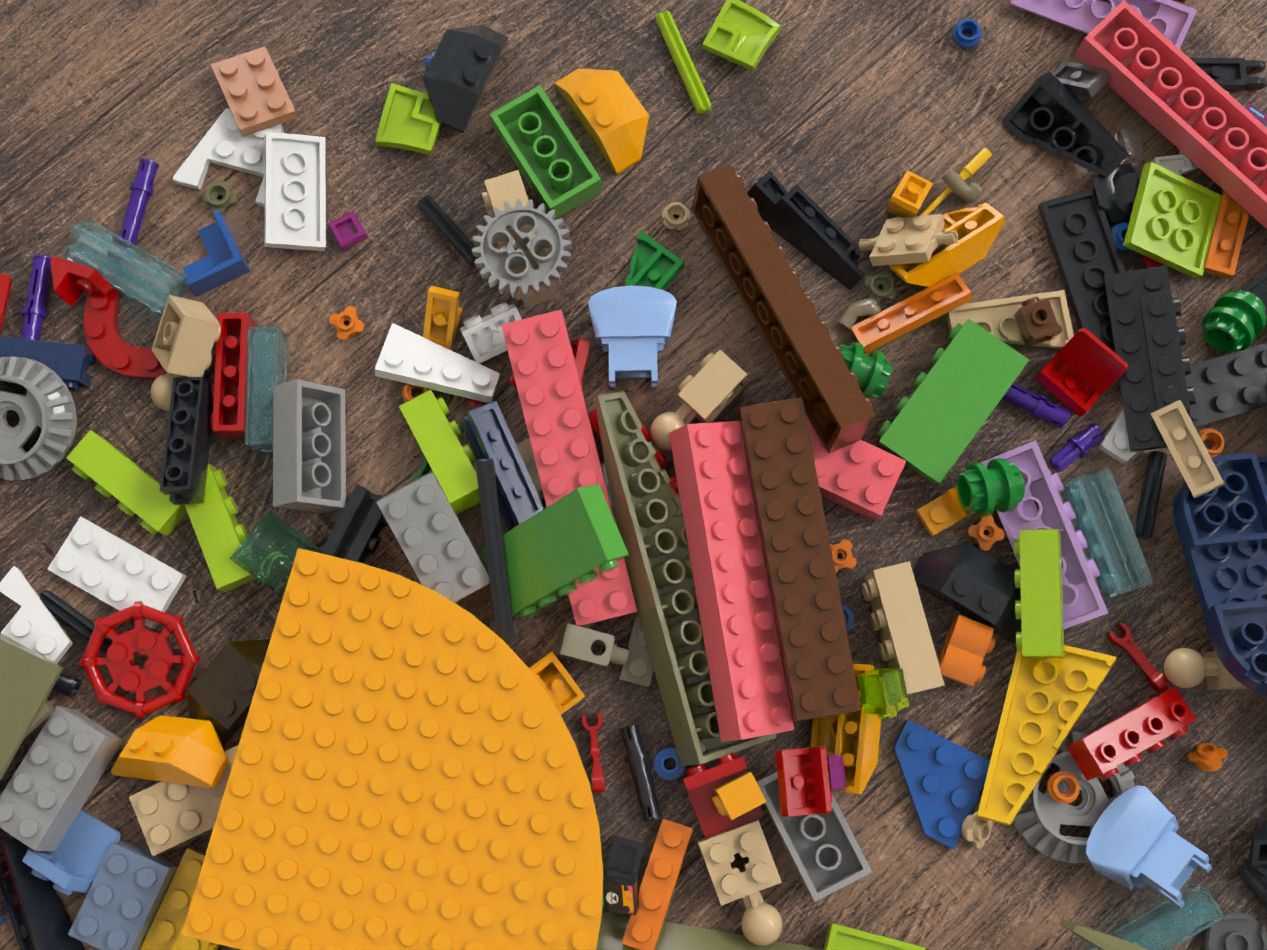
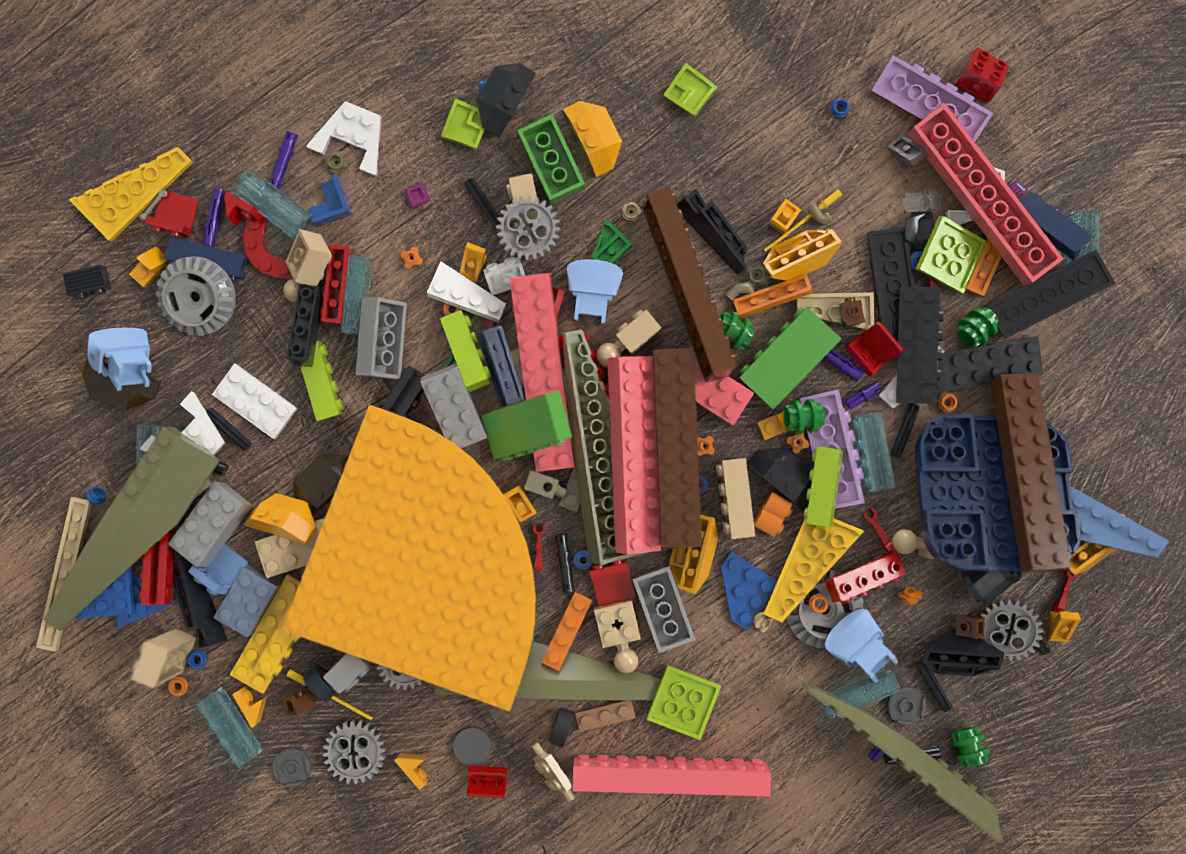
camera: 10 degrees right, 10 degrees up
(127, 482) = (264, 345): lime brick -> none
(132, 676) = (271, 448): red plate -> none
(253, 91) = (364, 92): nougat plate -> none
(271, 552) = (353, 401): clear green tile -> none
(295, 192) = (385, 165): white plate -> none
(495, 549) = (490, 418): black axle -> none
(620, 895) = (543, 635): black tile -> none
(624, 858) = (548, 614): black bracket -> none
(683, 62) = (649, 105): lime axle -> none
(738, 796) = (621, 586): light orange brick -> none
(803, 781) = (661, 583): red bracket -> none
(837, 773) = (682, 580): magenta tile -> none
(883, 692) = (717, 535): clear neon green brick -> none
(908, 240) = (777, 248): tan plate -> none
(1061, 124) = (891, 180): black wedge -> none
(1187, 449) = (929, 409): tan plate -> none
(1231, 72) = (1006, 156): black hinge -> none

